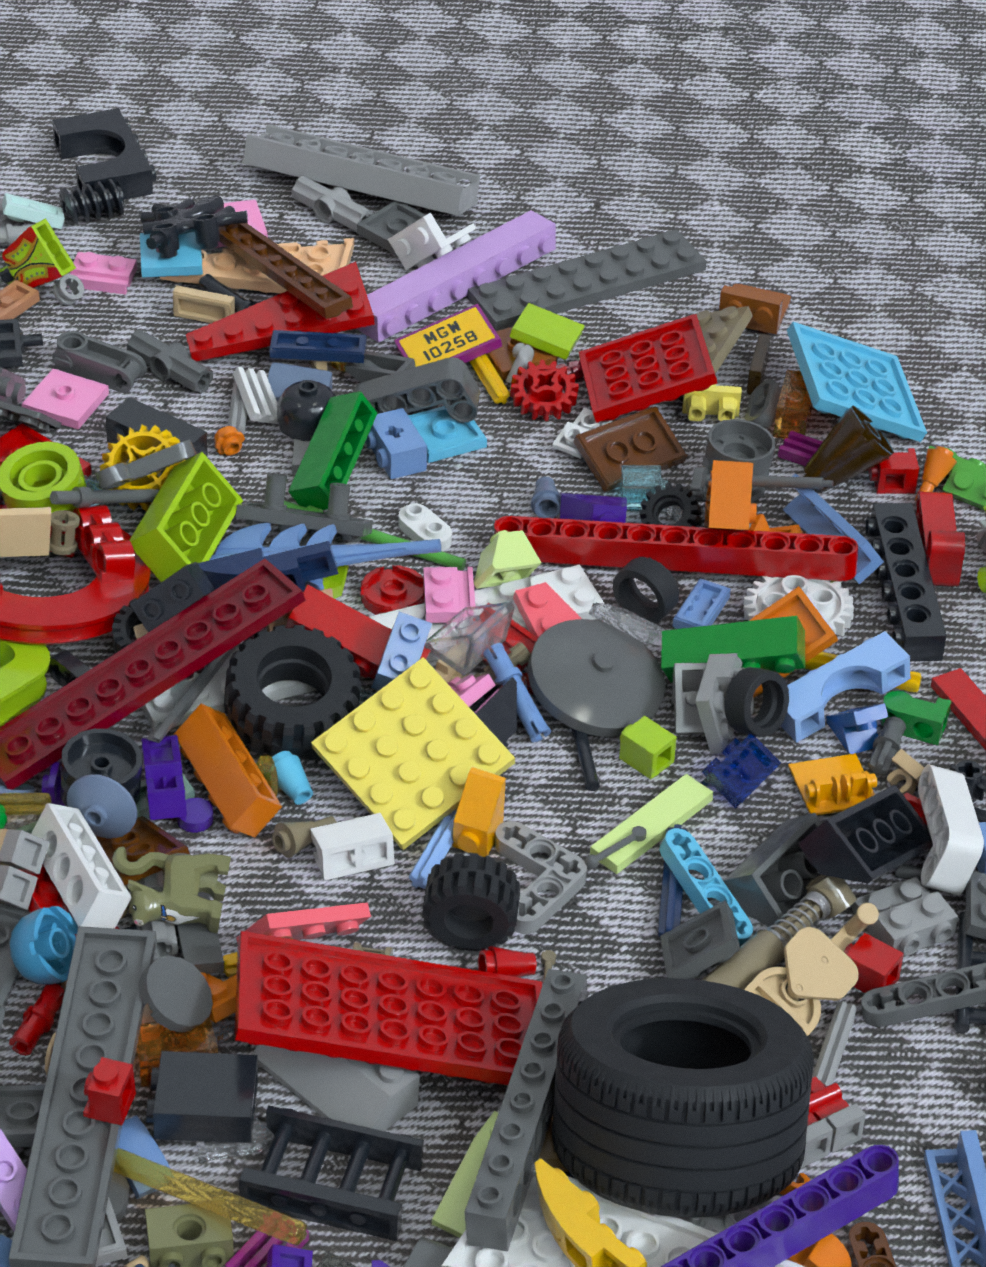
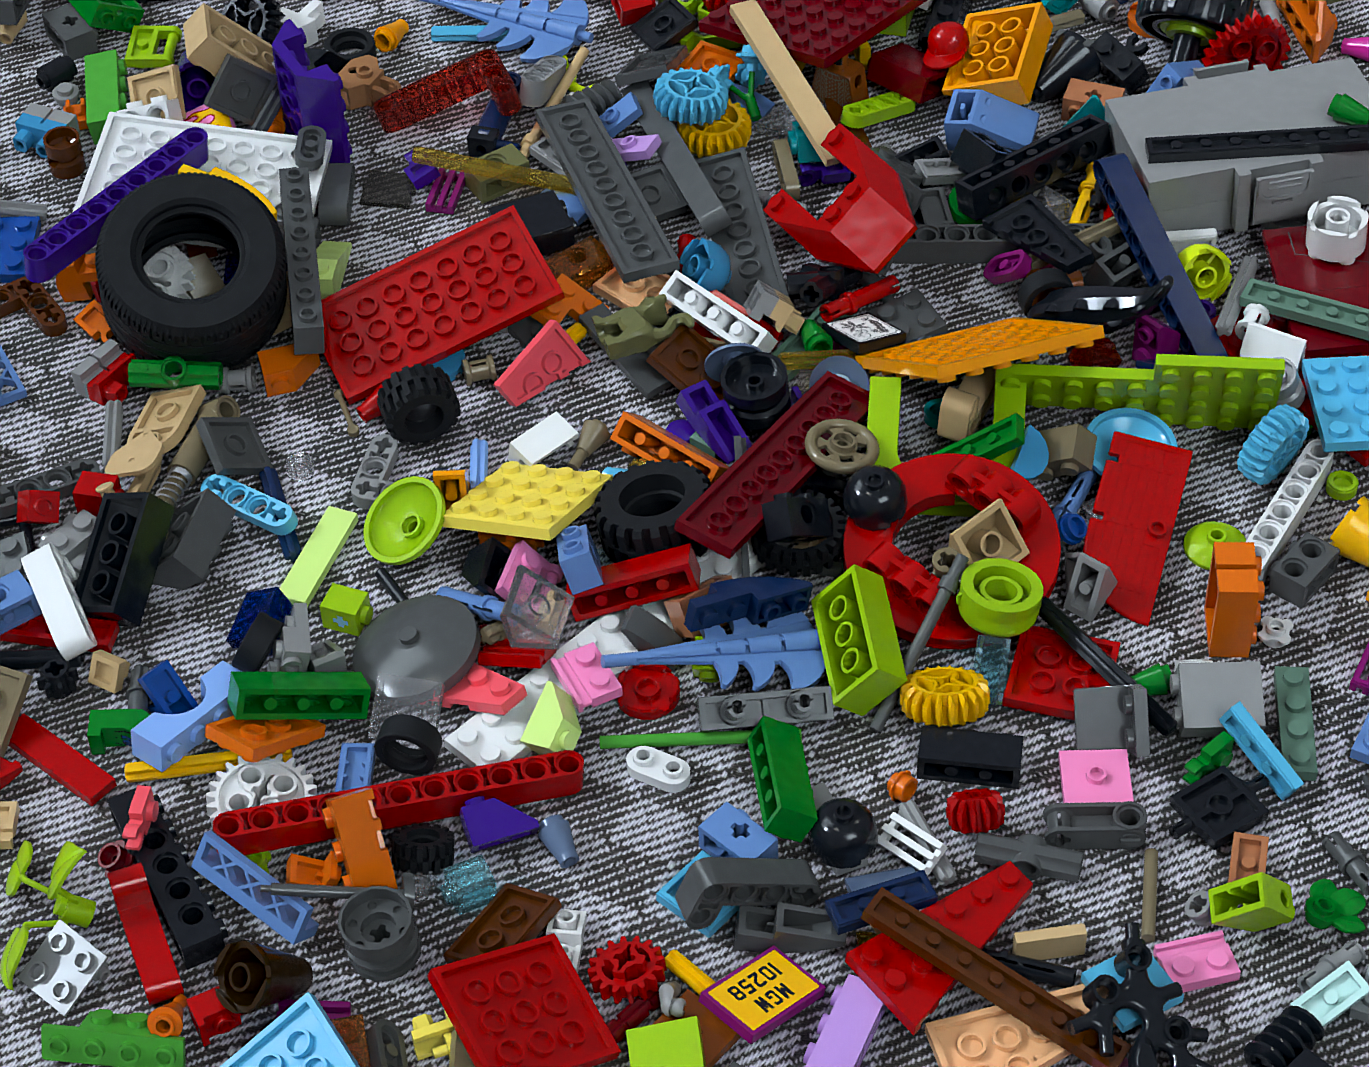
camera: 160 degrees right, 5 degrees up
(68, 665) = (841, 446): none -> dark tan plate
(79, 597) = (875, 497): none -> black cylinder
(103, 313) = (1149, 900): none -> dark tan bar
(109, 1091) = (580, 165): red brick -> none
(124, 473) = (936, 647): dark grey beam -> none
(176, 993) = (586, 254): dark grey tile -> none
(177, 395) = (975, 810): none -> red gear
(326, 1204) = (416, 218): black fence -> none
(374, 602) = (648, 631): none -> dark grey slope
(548, 795) = (404, 520): none -> lime dish
(633, 911) = (300, 459): none -> clear bush
(638, 834) = (321, 531): dark grey hinge -> none
(832, 783) = (176, 640): light orange hinge -> none
(917, 592) = (141, 814): none -> coral plate
(939, 960) = (38, 507): none -> red brick
(952, 611) = (114, 856): none -> dark red plate

